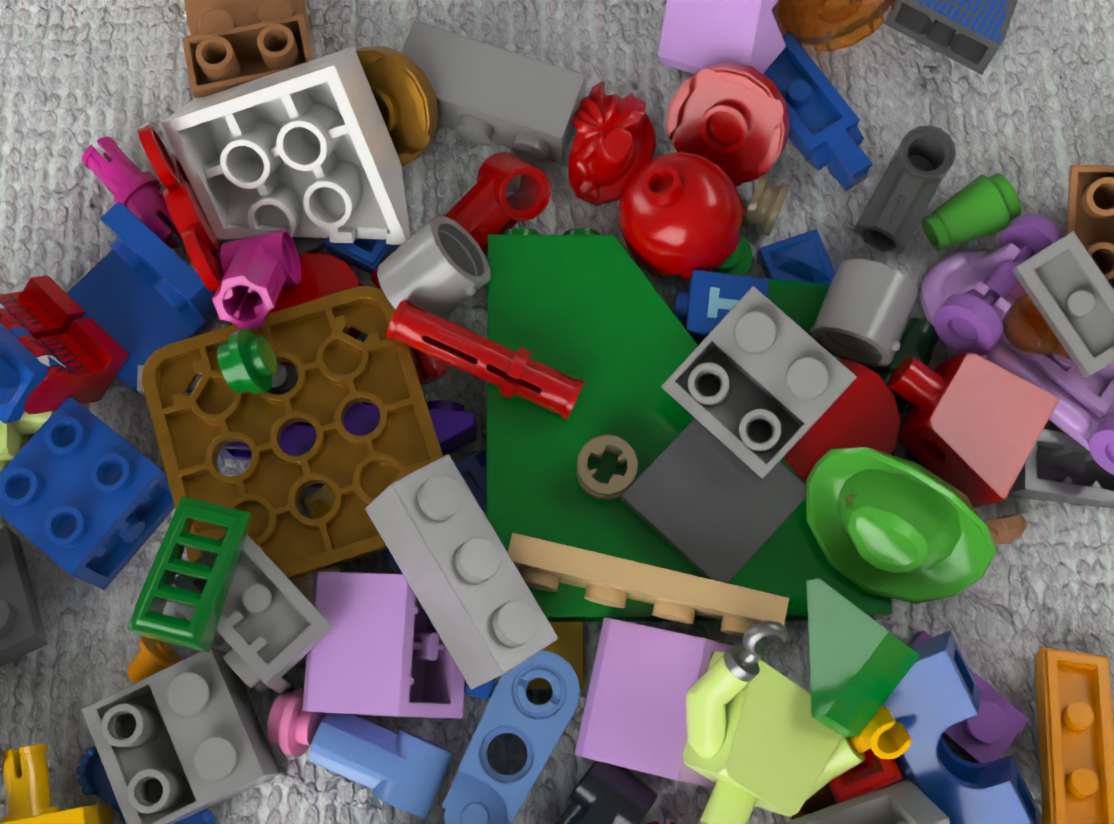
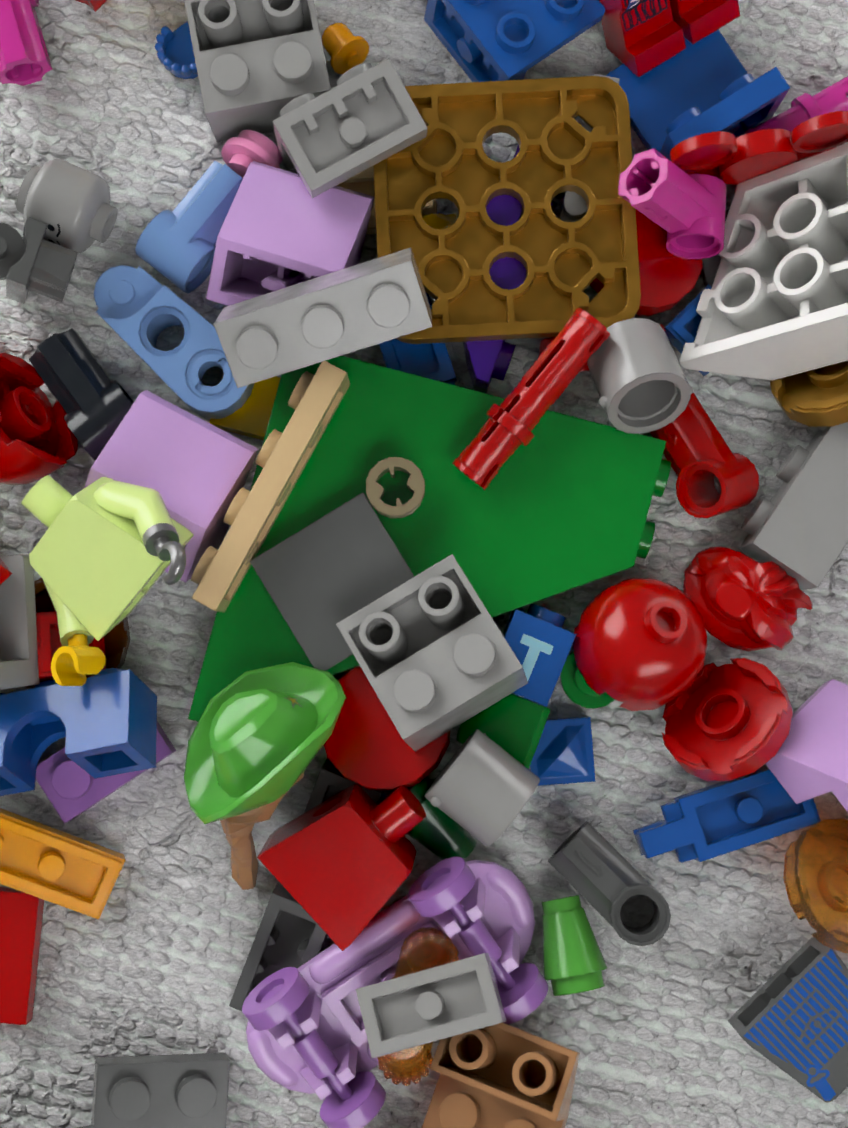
camera: 110 degrees right, 10 degrees up
(157, 590) = (399, 53): green slope -> none
(247, 362) = (583, 170): green plate -> none
(765, 205) = (633, 736): dark tan bush -> none
(850, 660) = (148, 652): green slope -> none

